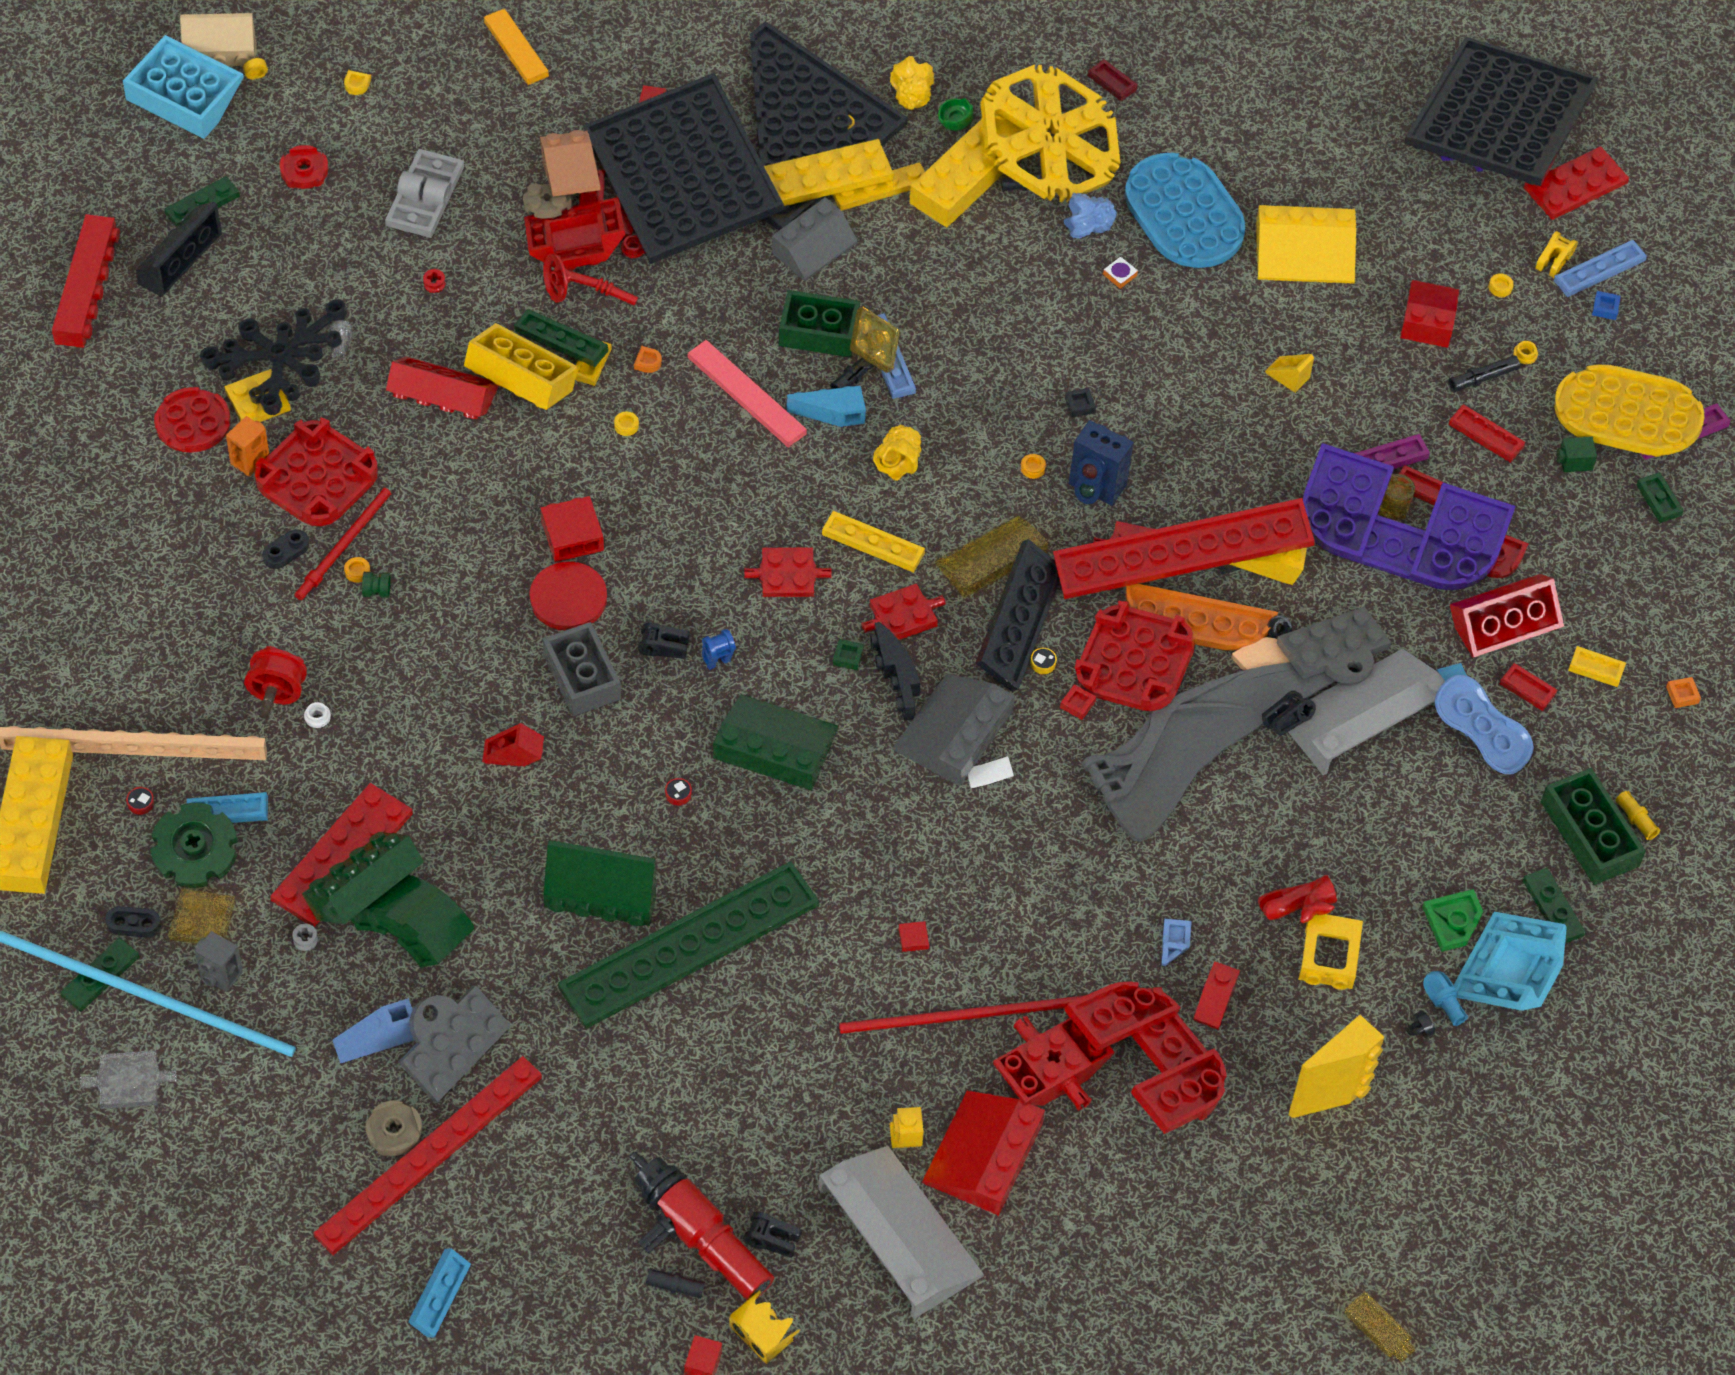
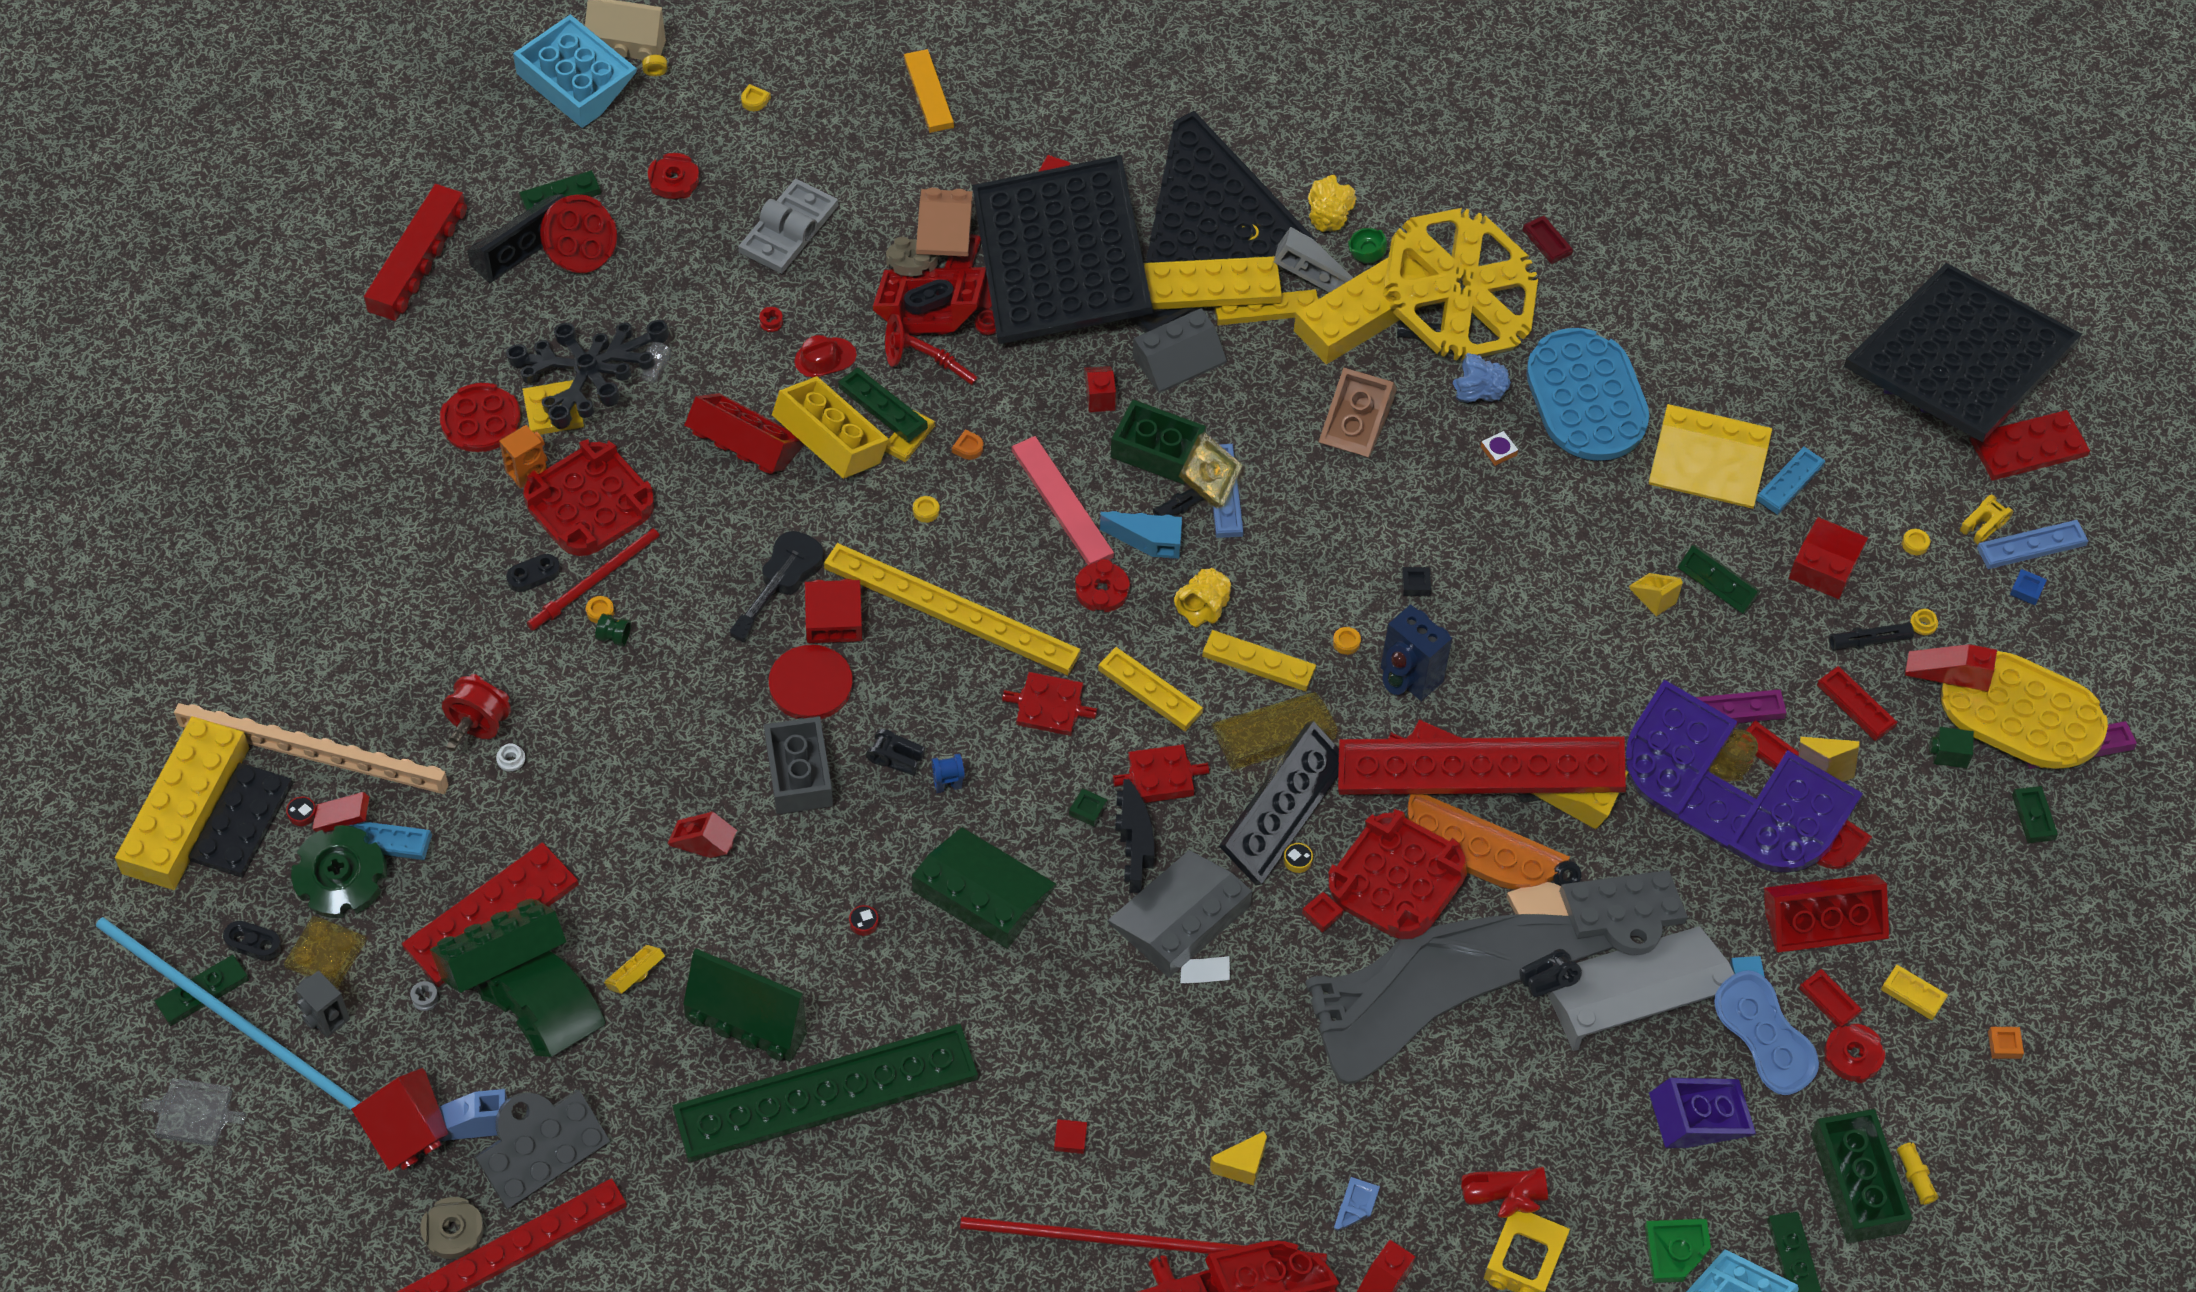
camera: 15 degrees right, 0 degrees up
(86, 819) = (240, 820): none -> black plate
(180, 792) = (341, 811): none -> tile
(235, 235) = (578, 234): none -> red tile
(324, 1045) = (402, 1120): none -> red slope
(487, 875) = (634, 969): none -> yellow plate
(492, 305) = (824, 356): none -> red piece
(520, 493) = (792, 562): none -> black piece
(575, 233) = (928, 296): none -> black plate
(677, 506) = (953, 609): none -> yellow plate
(752, 286) = (1100, 388): none -> red slope
(804, 448) = (1102, 572): none -> red plate
(910, 137) = (1310, 261): none -> light grey slope
(961, 498) = (1259, 660): none -> yellow plate
(988, 264) = (1357, 412): none -> nougat slope
(1067, 925) = (1241, 1160): none -> yellow slope
(1341, 349) = (1719, 579): none -> dark green plate
(1380, 252) = (1790, 480): none -> dark azure plate
(1444, 802) = (1700, 1111): none -> dark purple slope
(1481, 478) = (1831, 755): none -> yellow slope
(1555, 739) = (1849, 1067): none -> red plate
(1565, 383) = (1954, 665): none -> red slope

